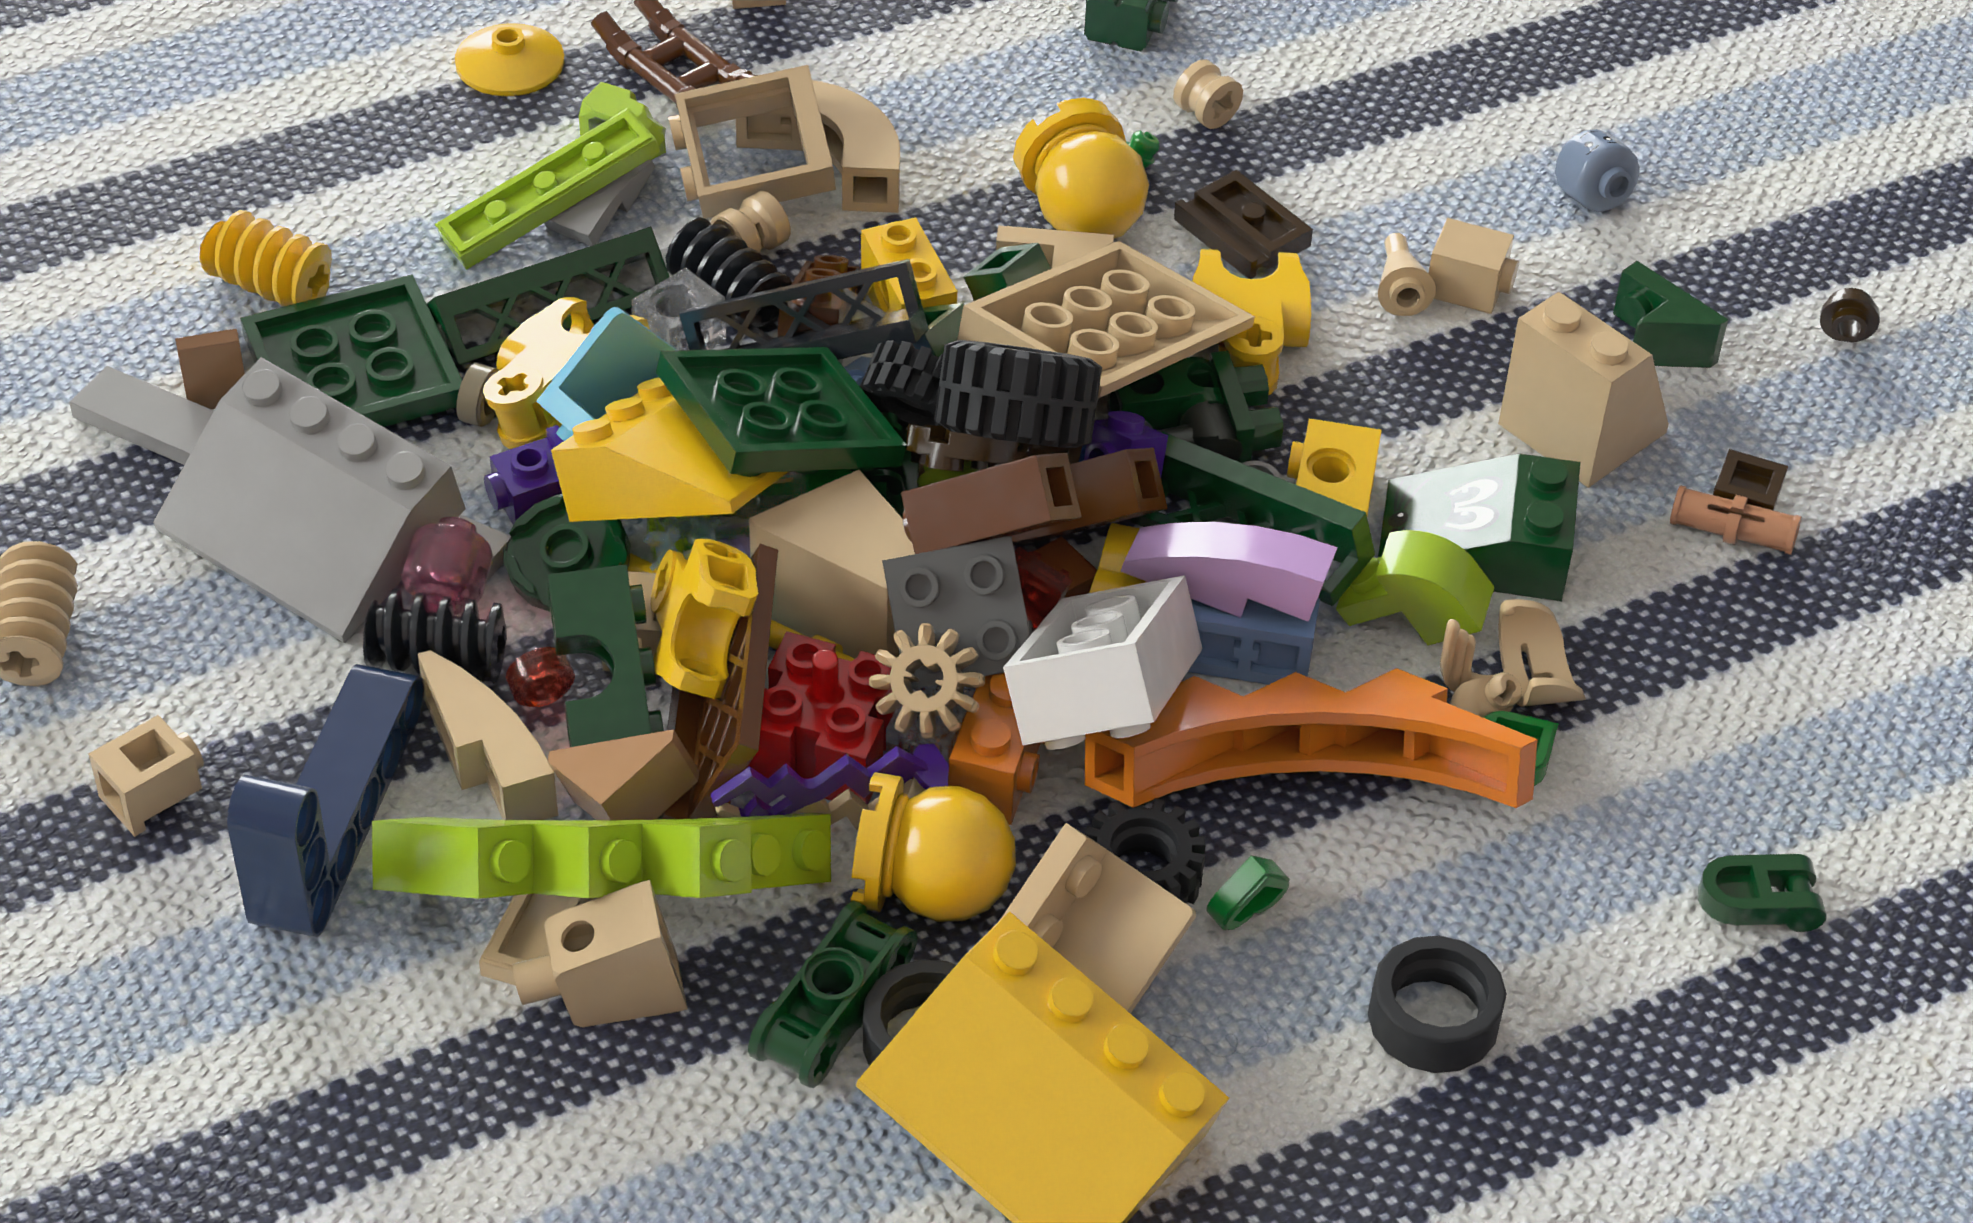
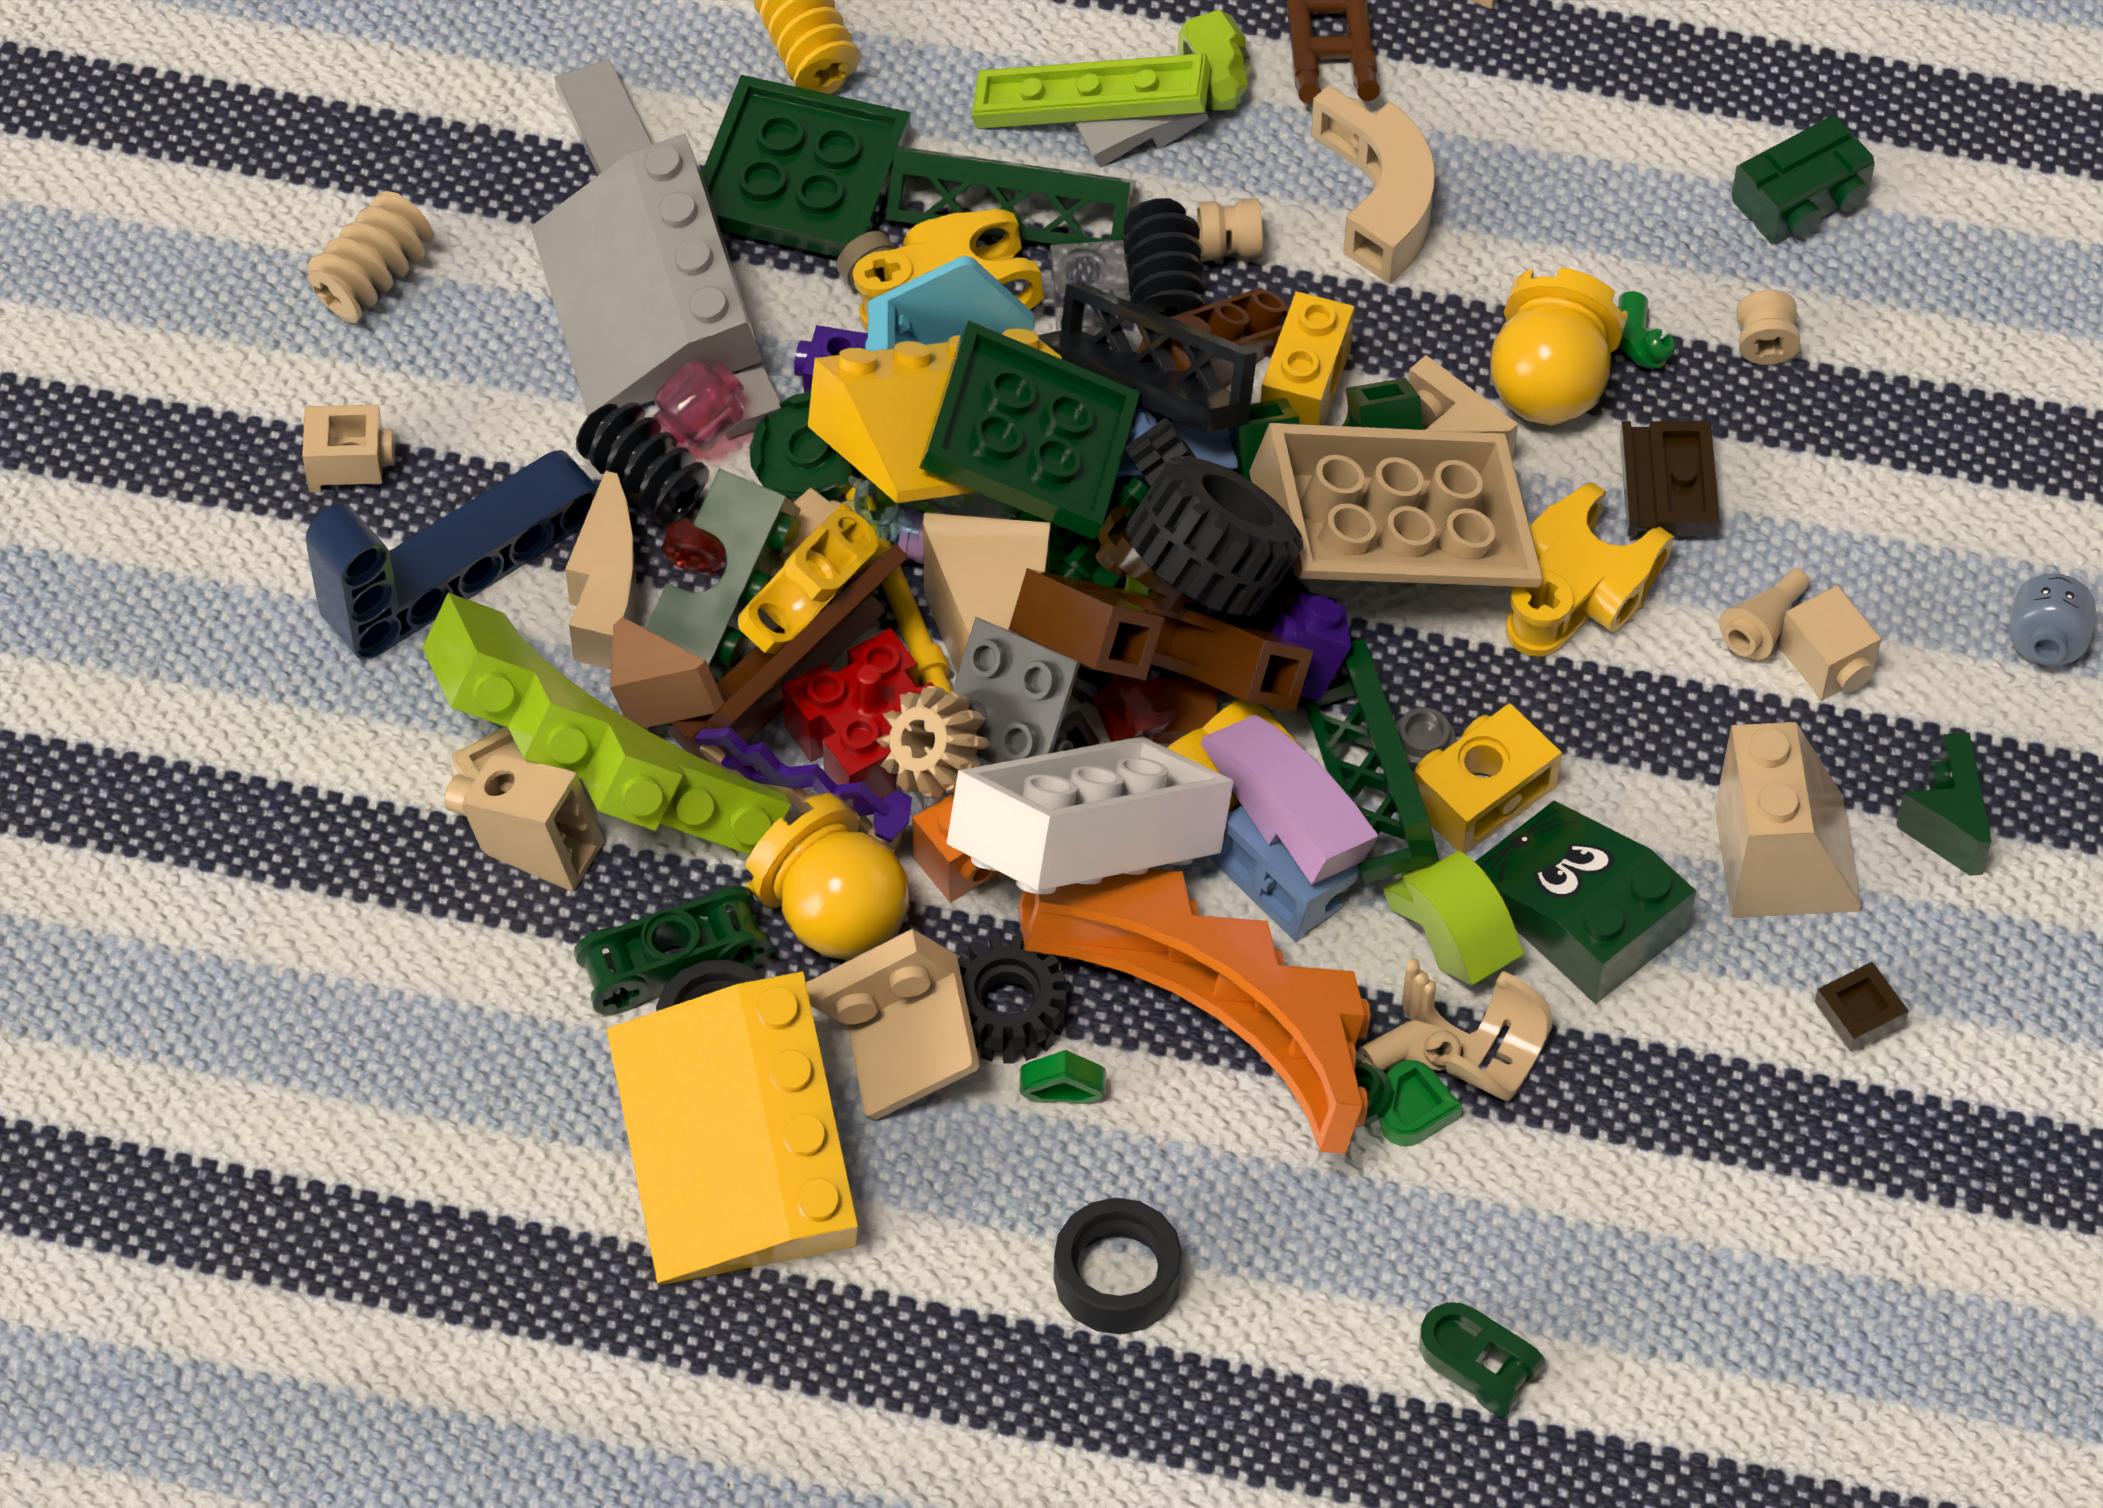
camera: 40 degrees right, 10 degrees up
(210, 365) = (685, 103): medium nougat slope -> none
(744, 99) = (1344, 166): tan window -> none
(1208, 404) = (1451, 636): dark green hips -> none
(1735, 519) = (1838, 1059): nougat pin -> none

